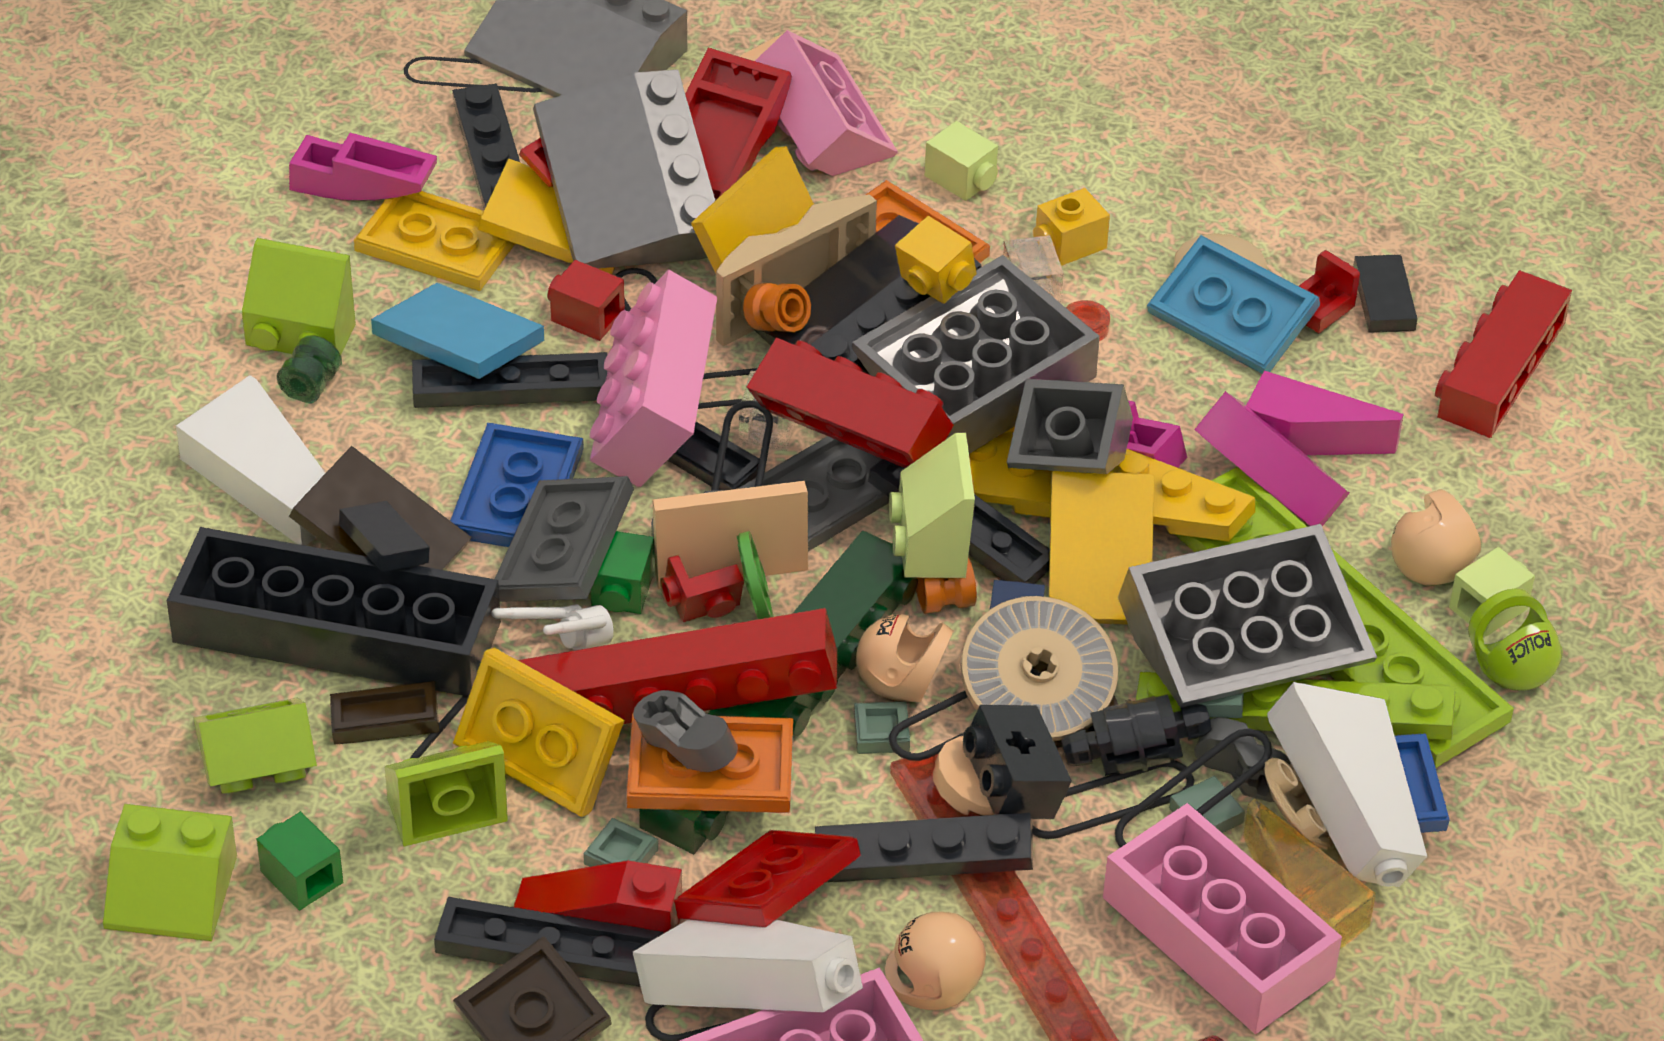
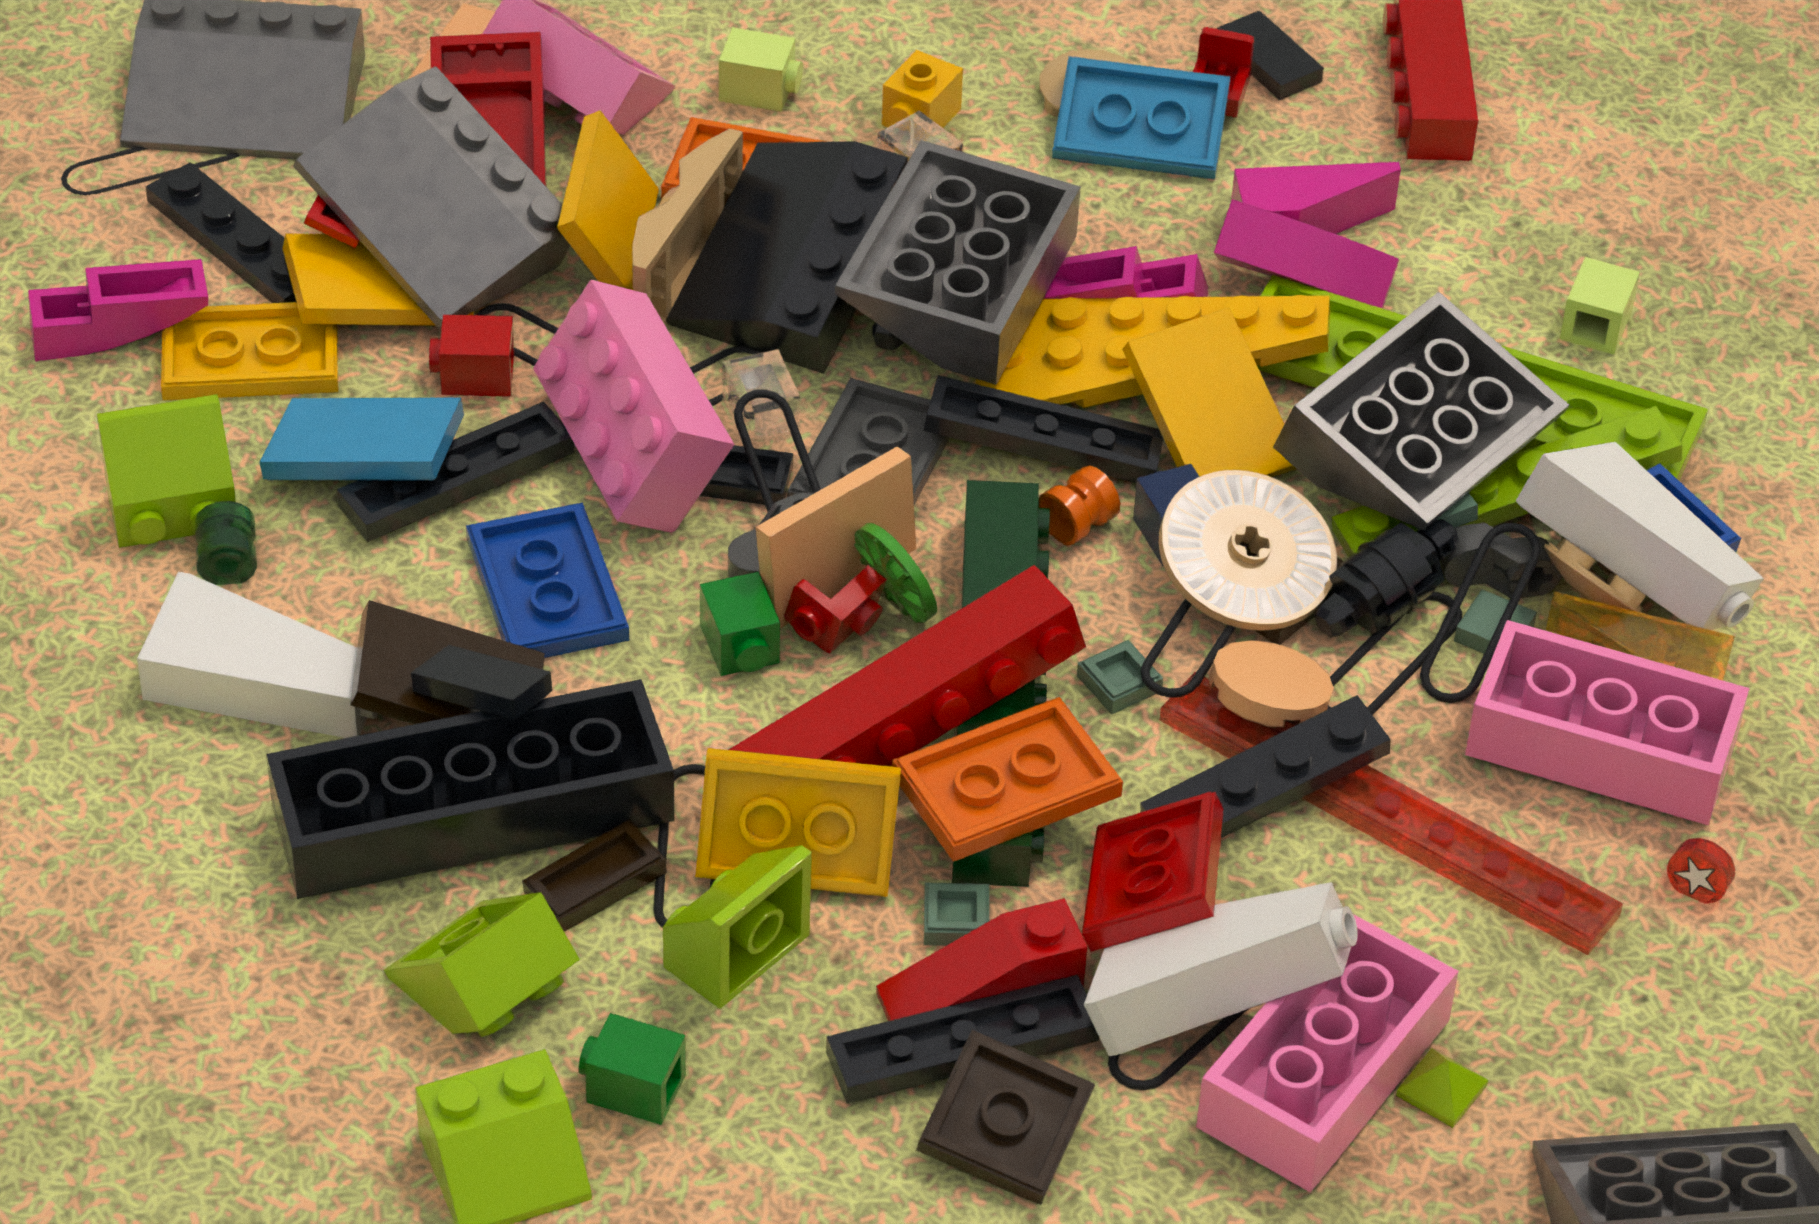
camera: 30 degrees left, 0 degrees up
(563, 538) = (661, 610): dark grey tile -> none
(578, 626) = (743, 703): white plant -> none
(685, 731) = (965, 748): dark grey piece -> none
(777, 307) = (710, 282): orange wheel -> none
(848, 403) = (882, 350): red brick -> none
(899, 661) = (1101, 593): light nougat helmet -> none
(935, 260) = (874, 166): yellow brick -> none
(935, 512) = (1051, 423): yellowish green slope -> none
(939, 957) = (1376, 874): light nougat helmet -> none
(1016, 760) = (1303, 649): black brick -> none
(1071, 427) = (1115, 290): dark grey slope -> none
(1435, 541) = (1521, 276): light nougat helmet -> none
(1525, 656) = (1676, 349): lime helmet -> none

